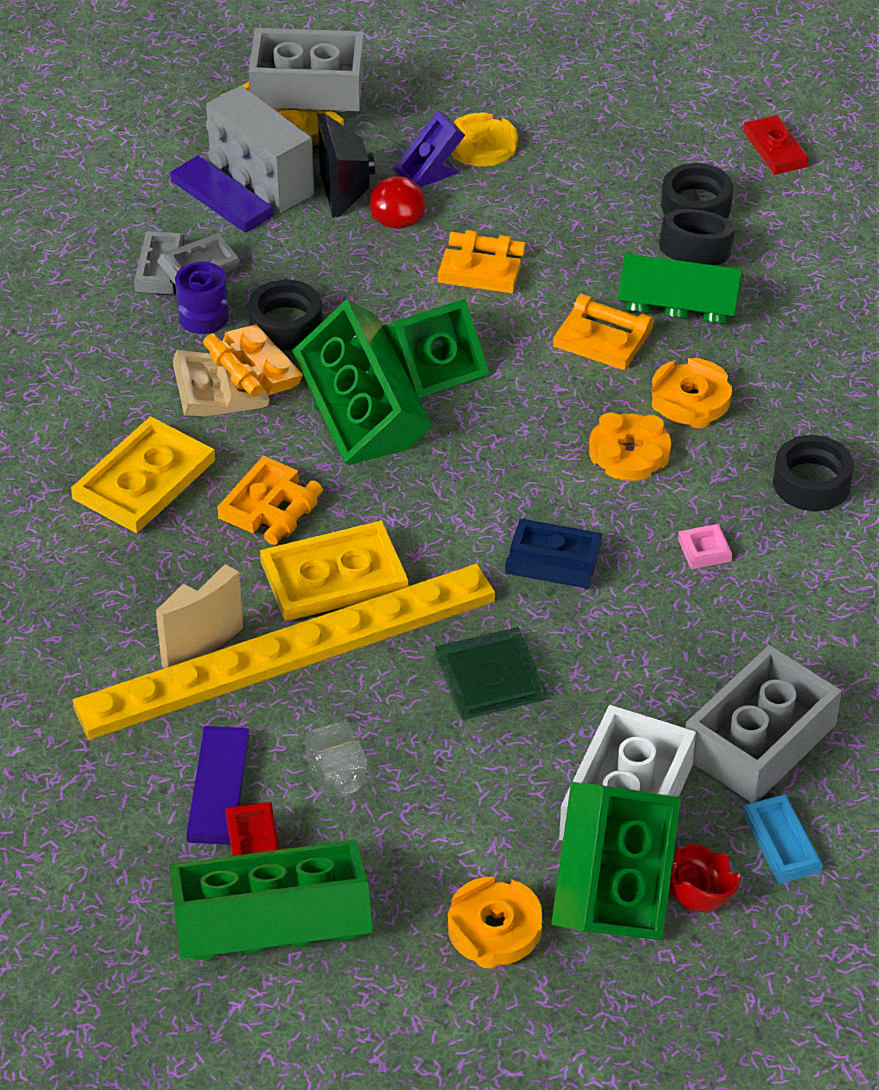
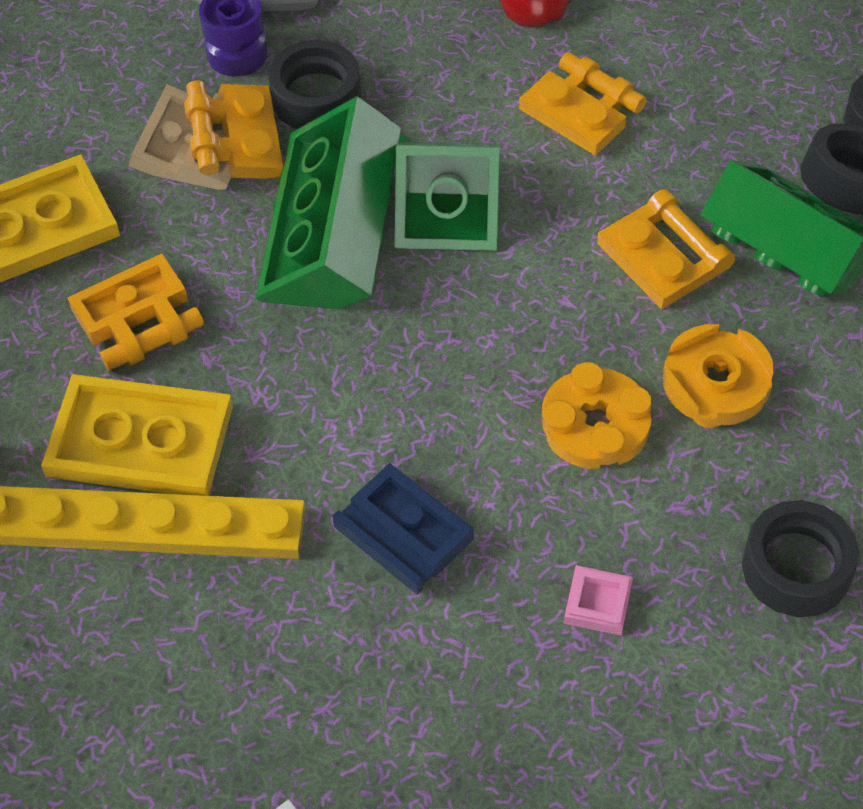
camera: 30 degrees right, 10 degrees up
(490, 673) = (221, 660): clear green tile -> none

